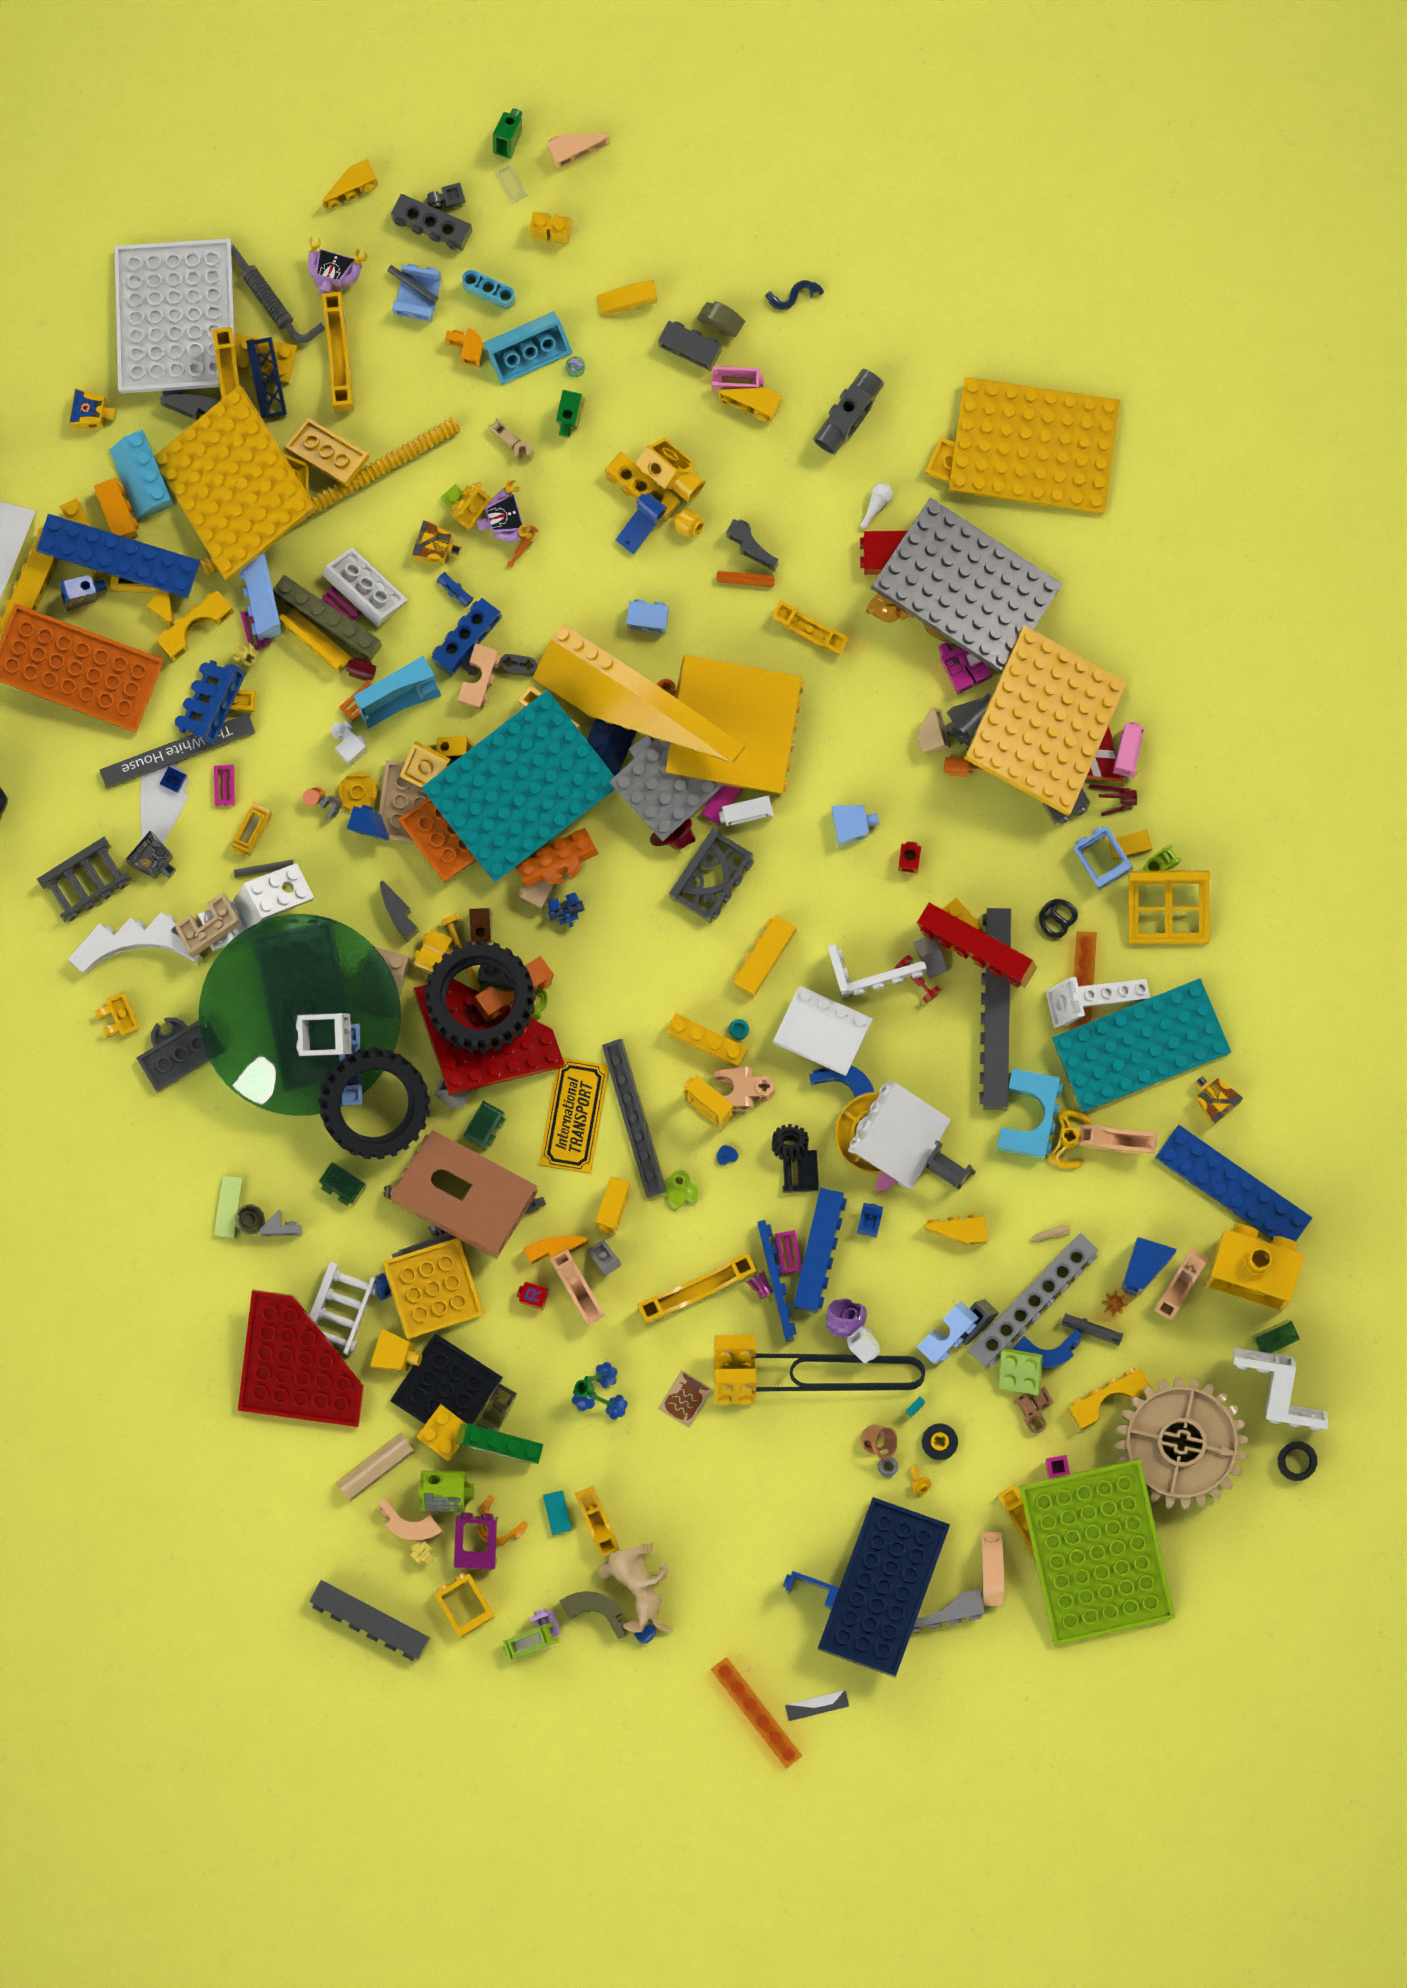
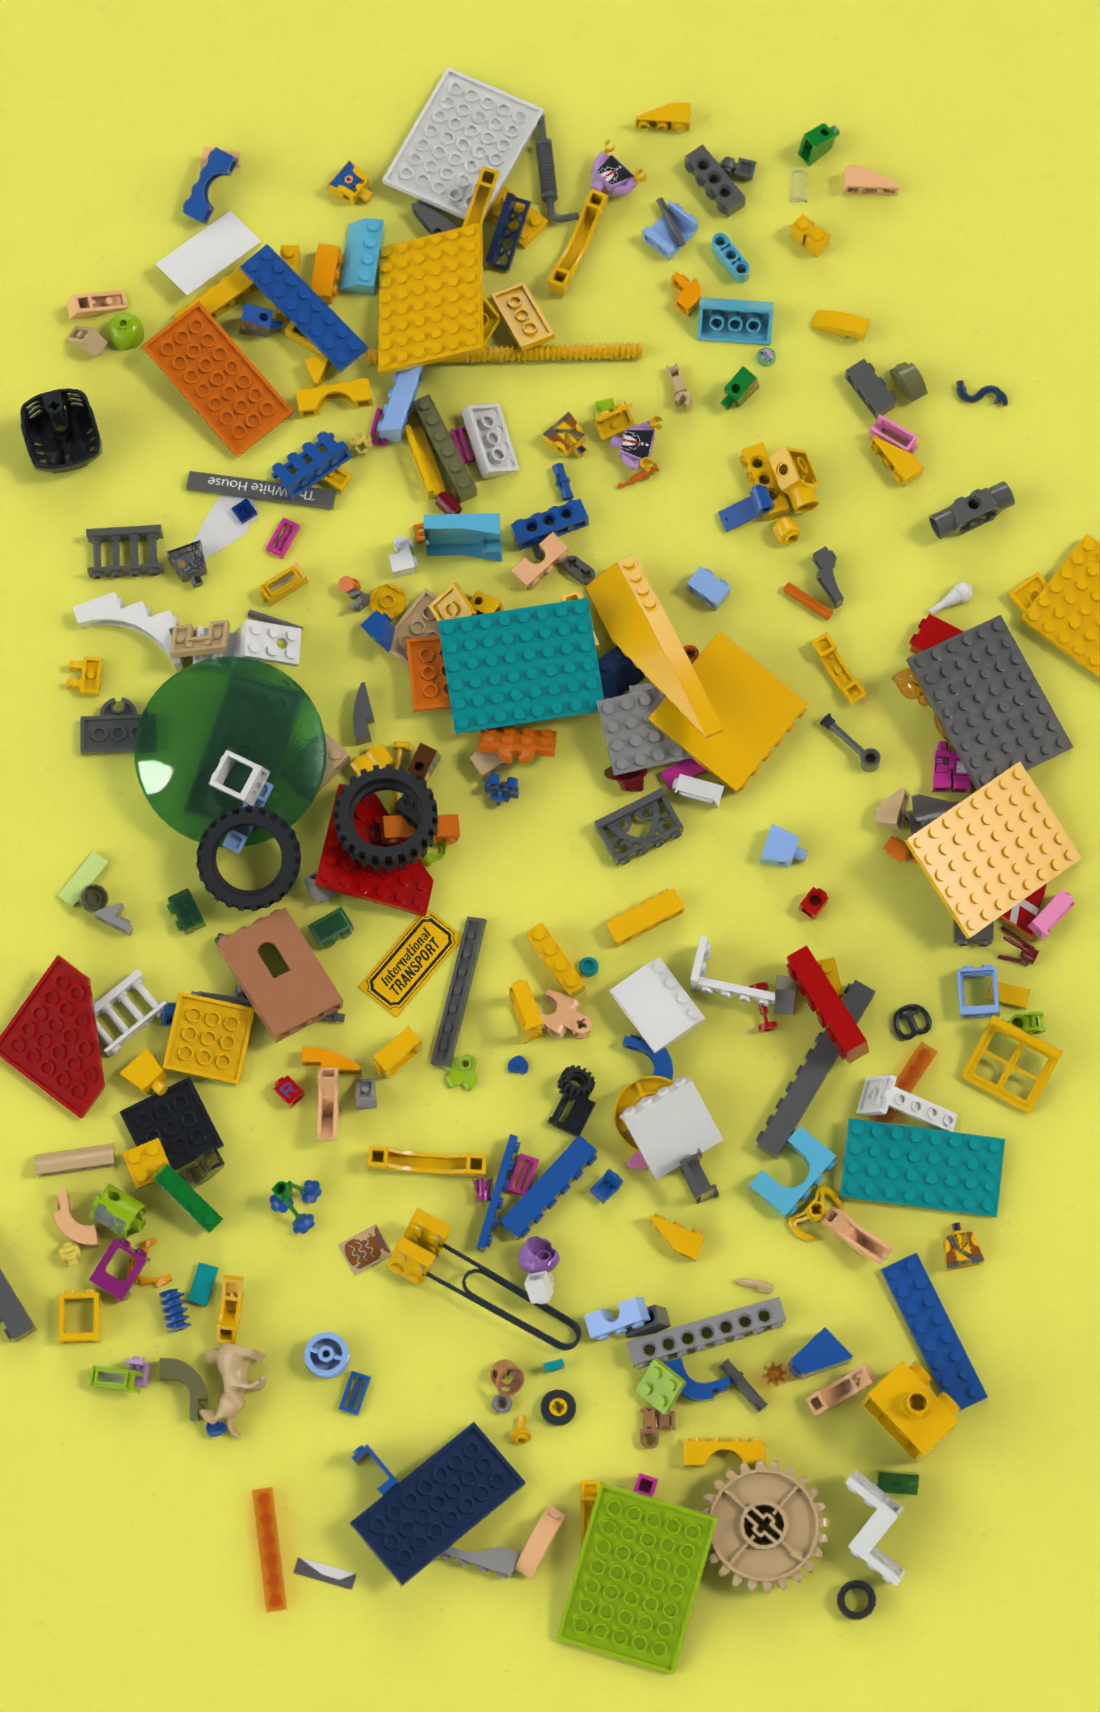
camera: 25 degrees right, 5 degrees down
(546, 1550) = (175, 1311): none -> blue piece
(707, 1512) = (326, 1355): none -> light blue wheel
(754, 1549) = (349, 1409): none -> blue tile
(829, 683) = (830, 723): none -> dark grey piece

